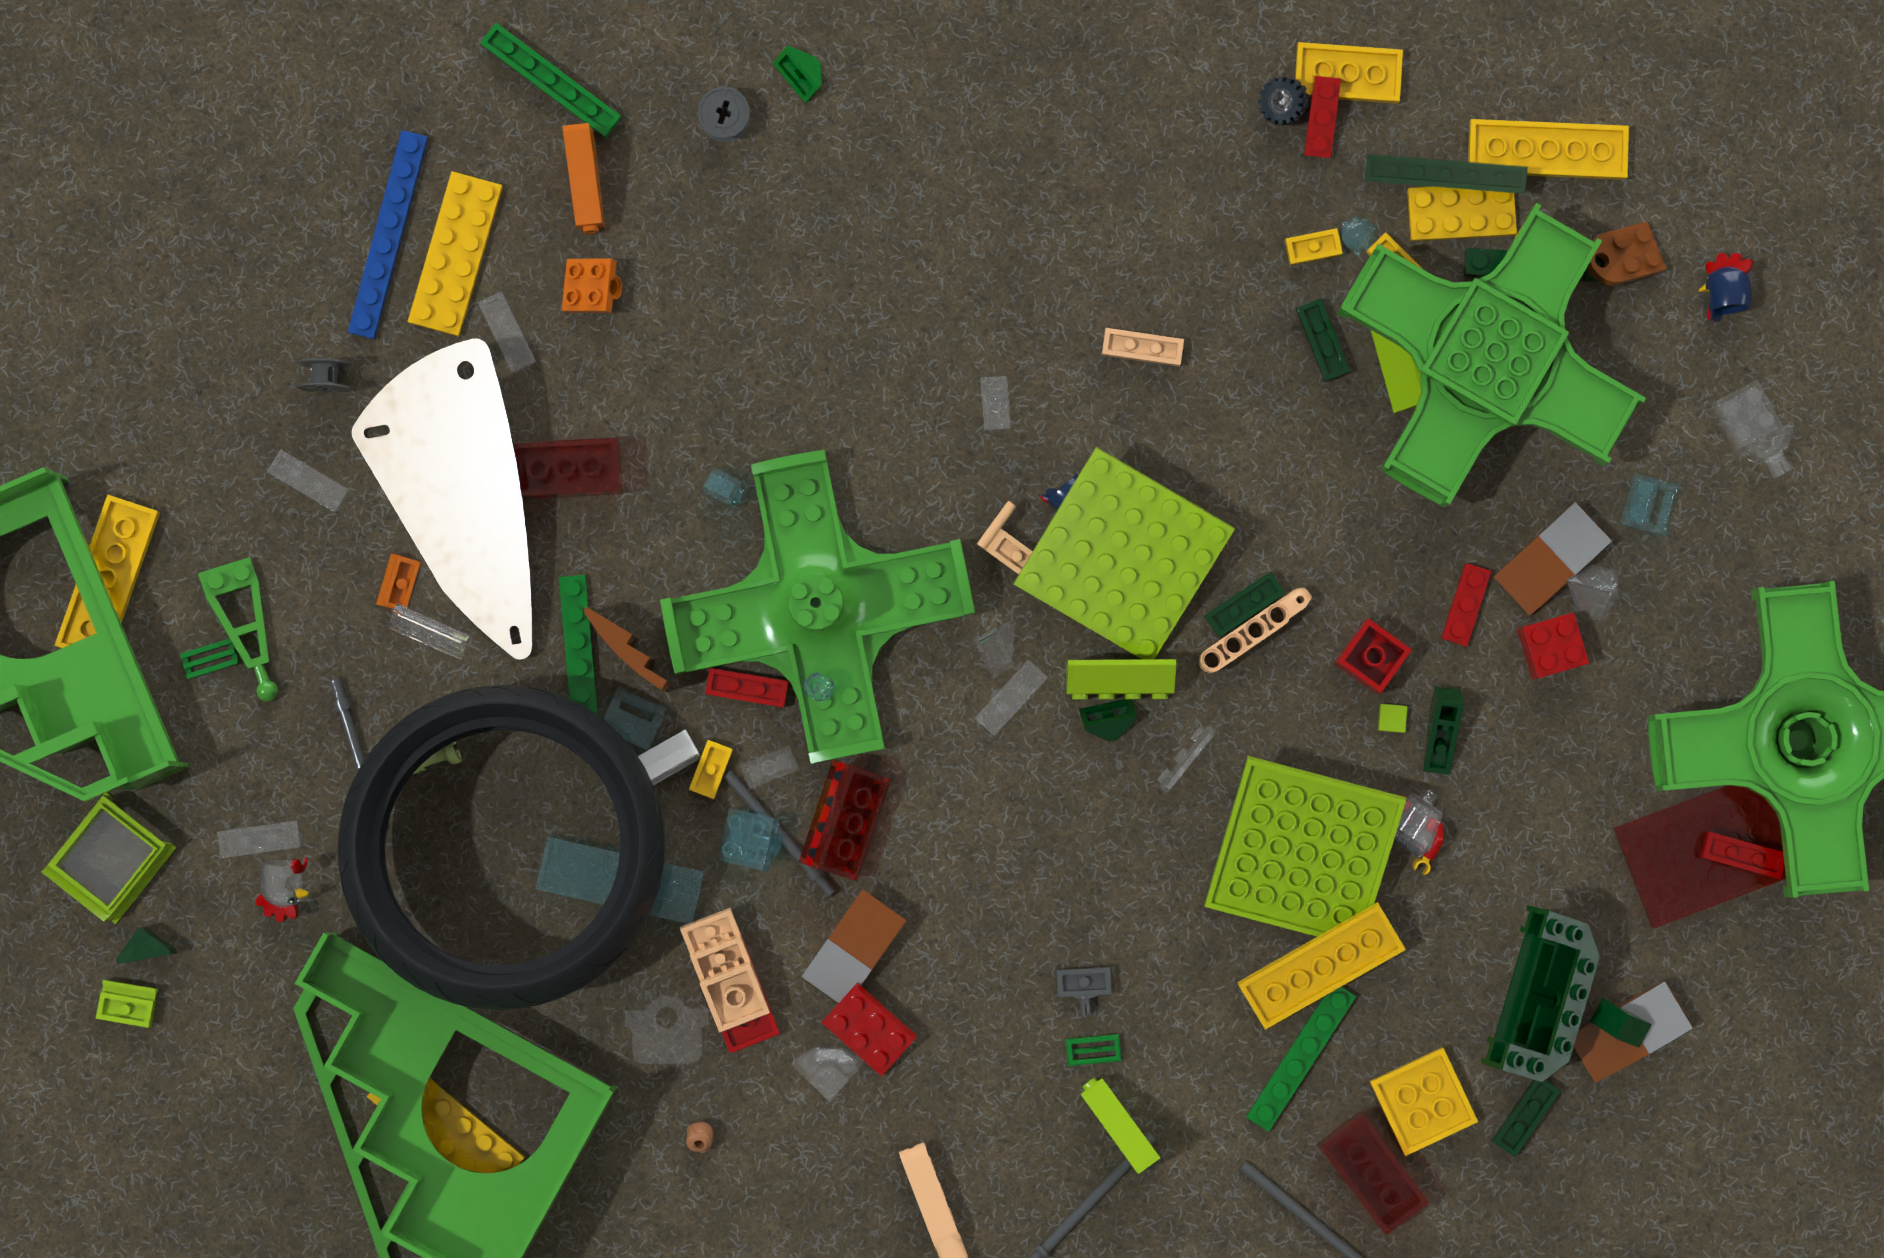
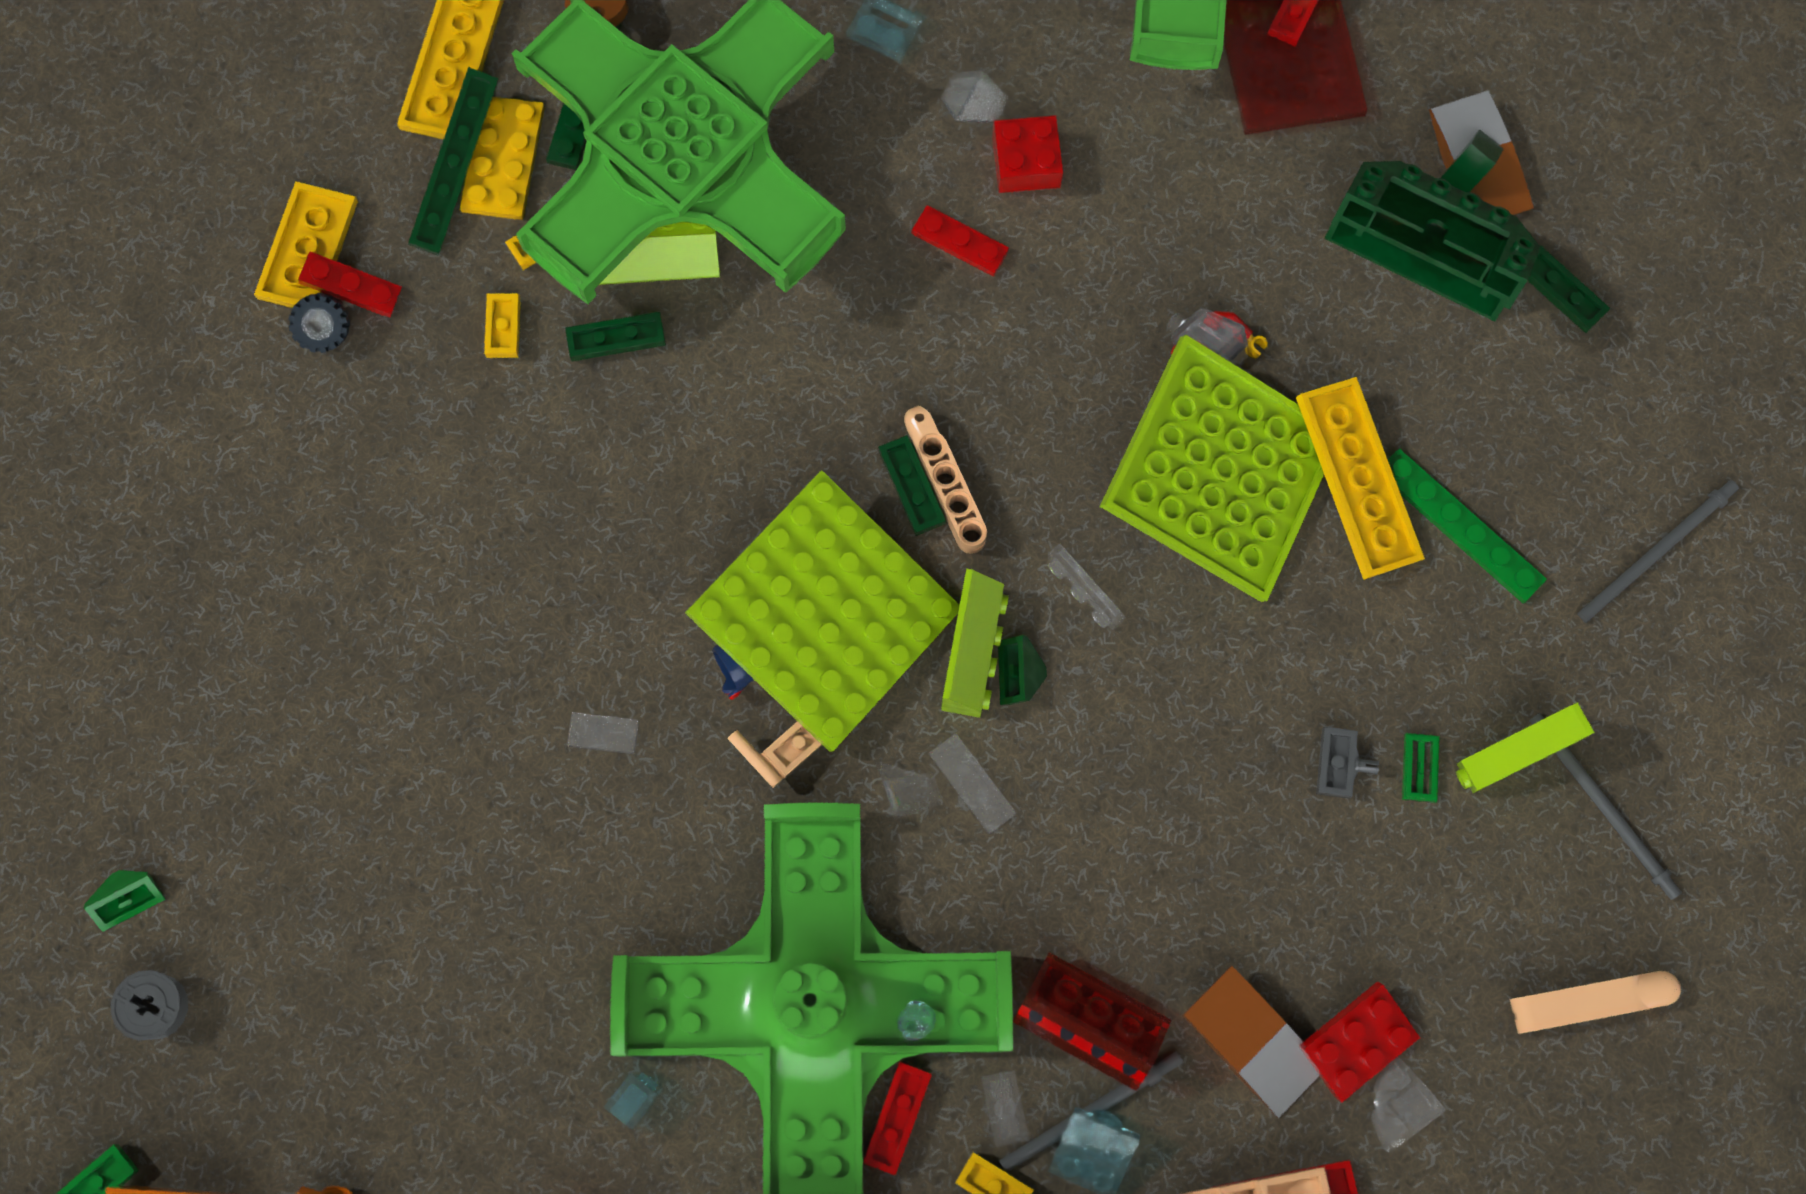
camera: 80 degrees left, 10 degrees down
(1142, 347) = (574, 543): light nougat plate -> none
(1358, 234) = (500, 274): clear light blue piece -> none
(1372, 656) = (1002, 350): red brick -> none
(1372, 1173) = (1612, 467): clear red brick -> none
(1392, 718) = (1077, 346): lime tile -> none
(1423, 1101) = (1532, 397): yellow plate -> none
(1443, 729) = (1100, 290): dark green slope -> none
(1552, 558) = (926, 135): slope -> none

